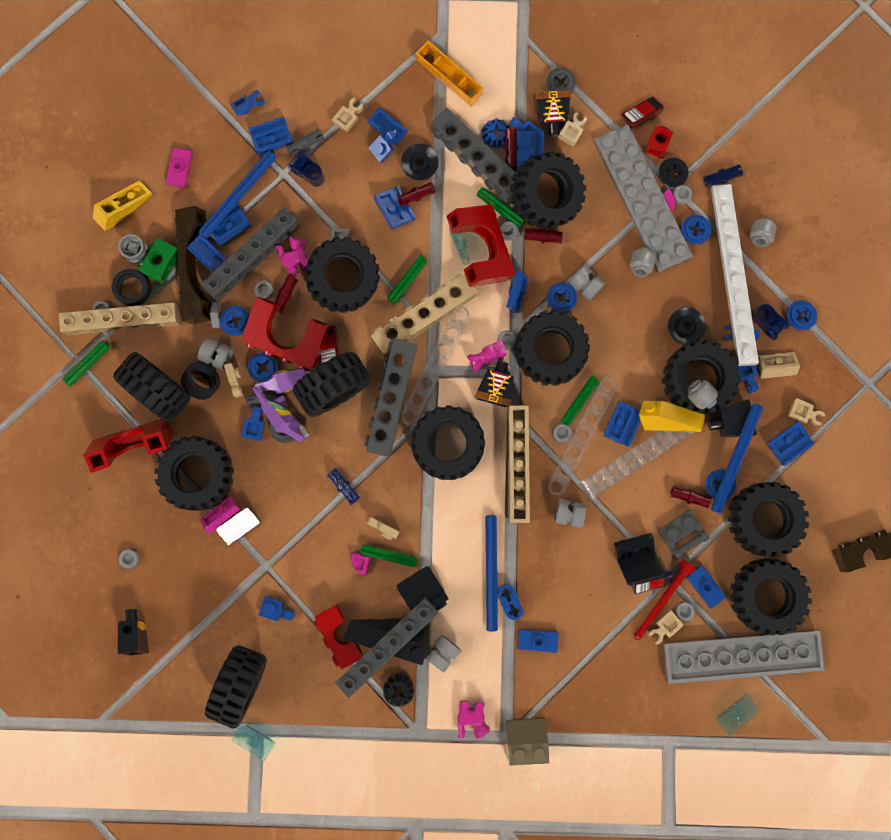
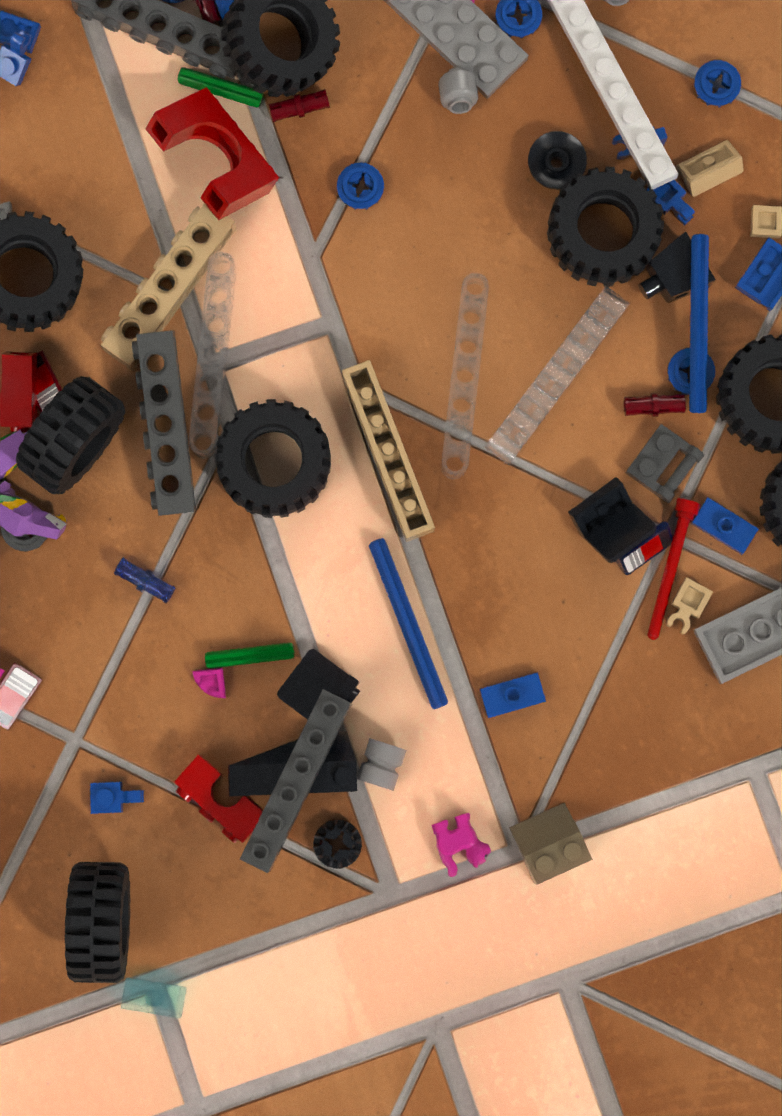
camera: 25 degrees left, 0 degrees up
(387, 531) = (234, 620): tan plate -> none
(391, 210) = (64, 145): blue plate -> none
(407, 279) = (123, 243): green axle -> none
(416, 194) = (88, 113): dark red pin -> none
(419, 153) = (72, 51): black dish -> none
(461, 245) = (184, 165): clear light blue plate -> none
(488, 355) = (284, 310): dark pink animal -> none
(496, 386) = (313, 351): torso -> none
(505, 603) = (445, 660): blue beam -> none
(508, 339) = (303, 278): light grey tile -> none
(509, 230) = (246, 117): light grey tile -> none
(517, 292) = (292, 202): blue plate -> none
(562, 433) = (434, 383): light grey tile -> none
(569, 330) = (373, 226): black tyre -> none
(570, 513) = (489, 493): light grey wheel -> none
(579, 400) = (443, 327): green axle -> none
(587, 283) = (389, 151): light grey wheel -> none
(623, 424) = (518, 336): blue plate -> none
(669, 417) = (577, 301): yellow slope -> none
(684, 611) = (707, 572): light grey tile -> none
(702, 394) = (613, 248): light grey head -> none
(772, 323) = (676, 108): clear blue piece -> none

